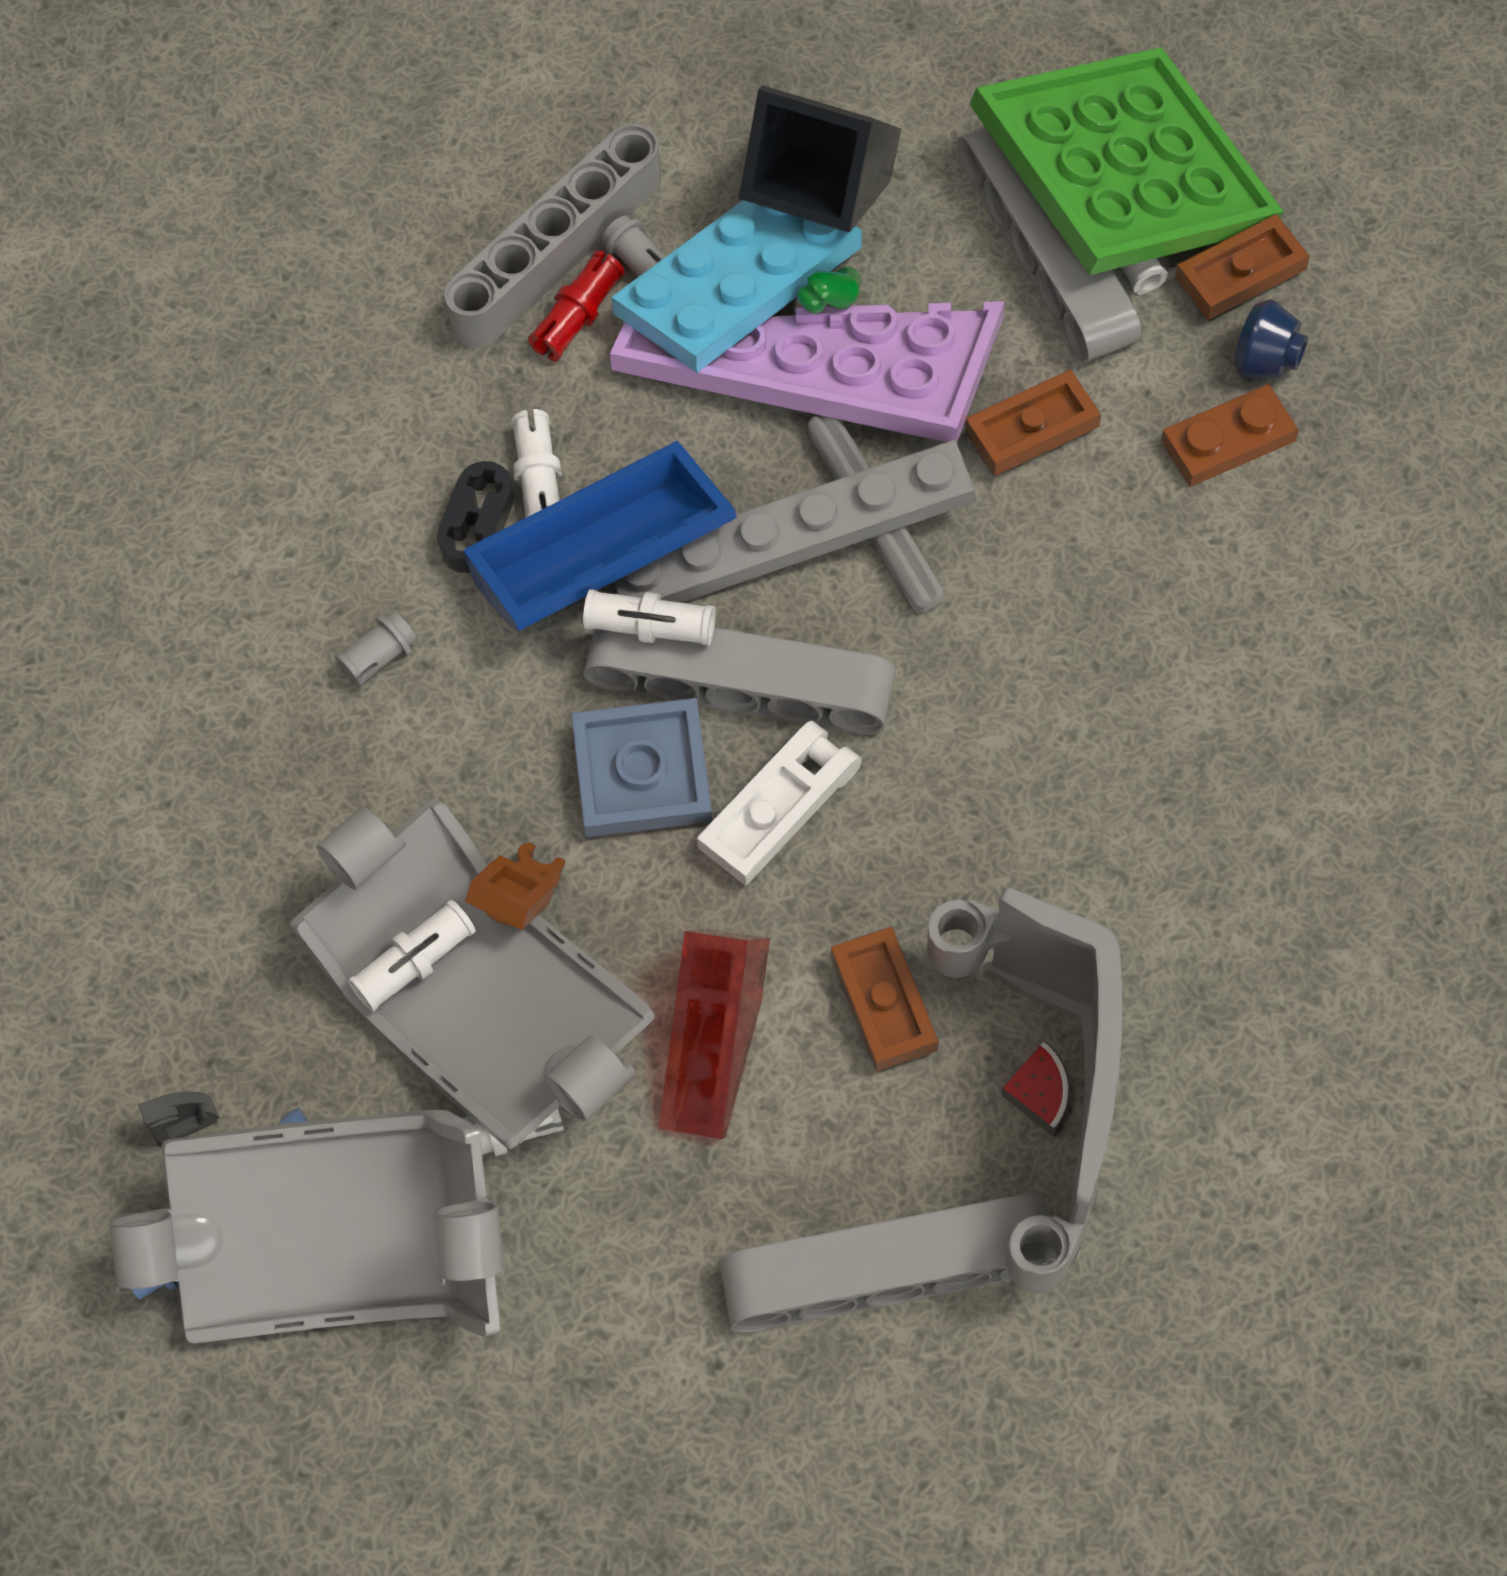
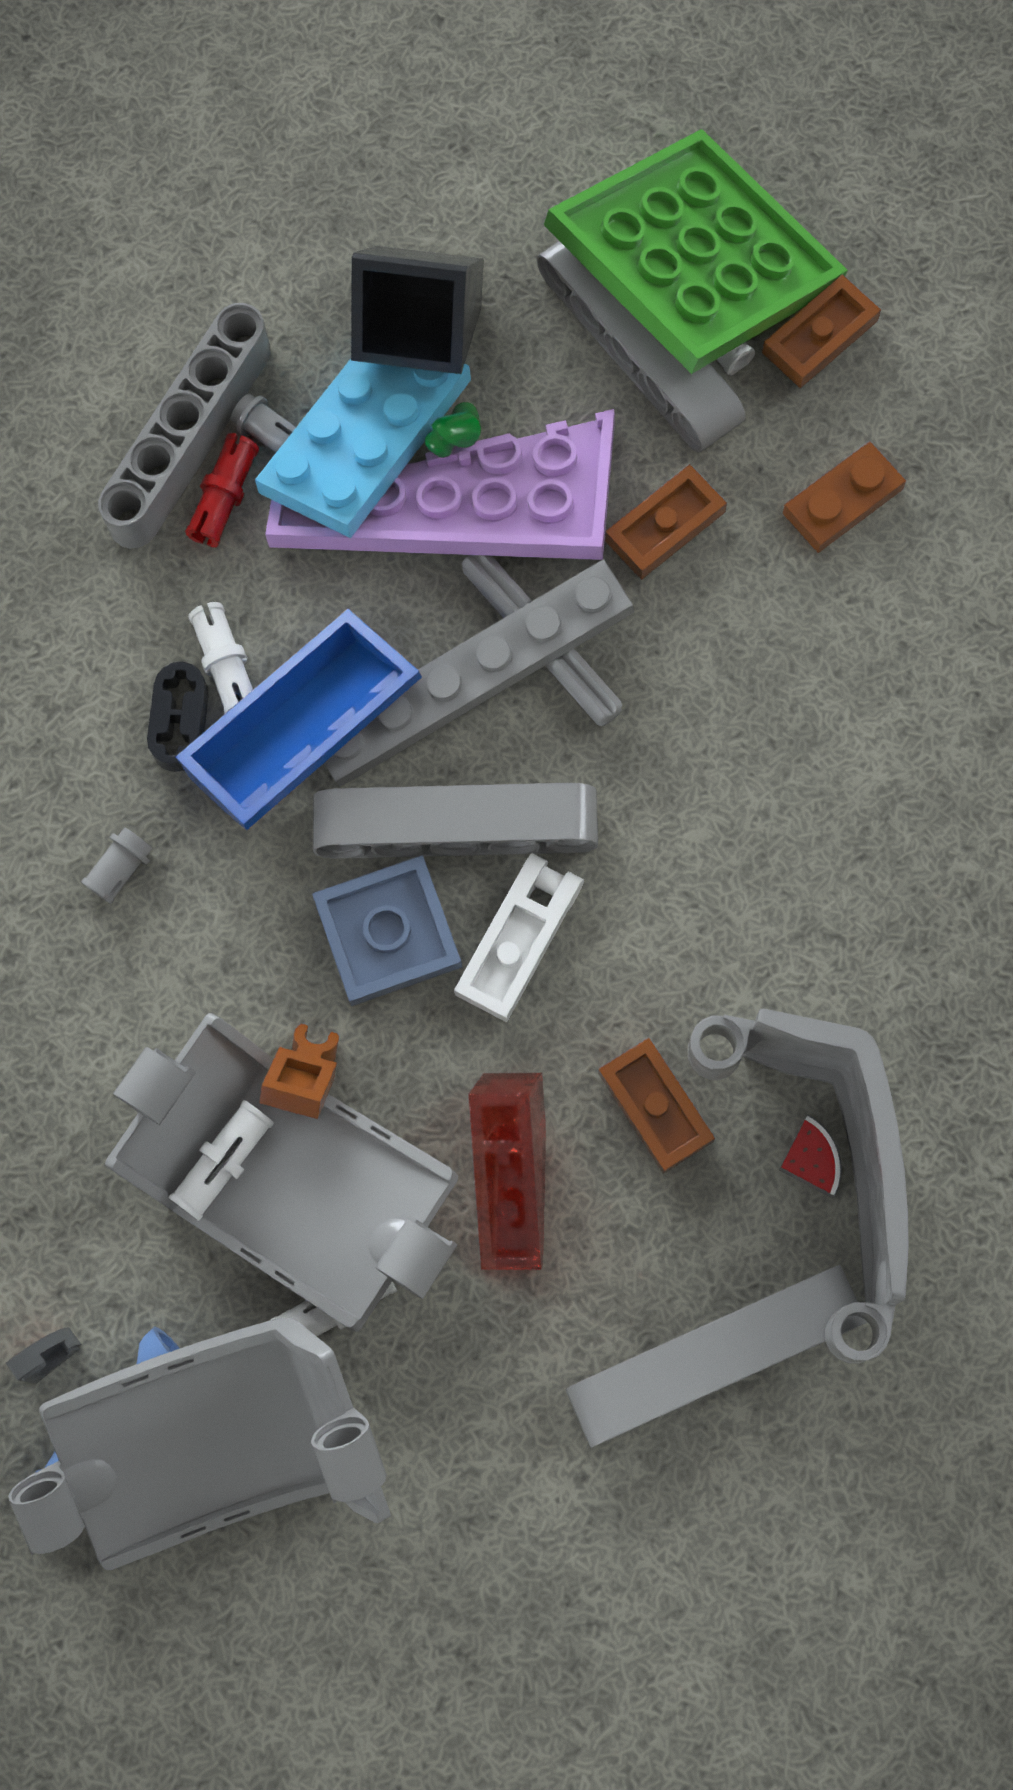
camera: 10 degrees left, 10 degrees up
(607, 612) = (324, 795): white pin -> none
(1269, 342) = (863, 401): dark blue cone -> none

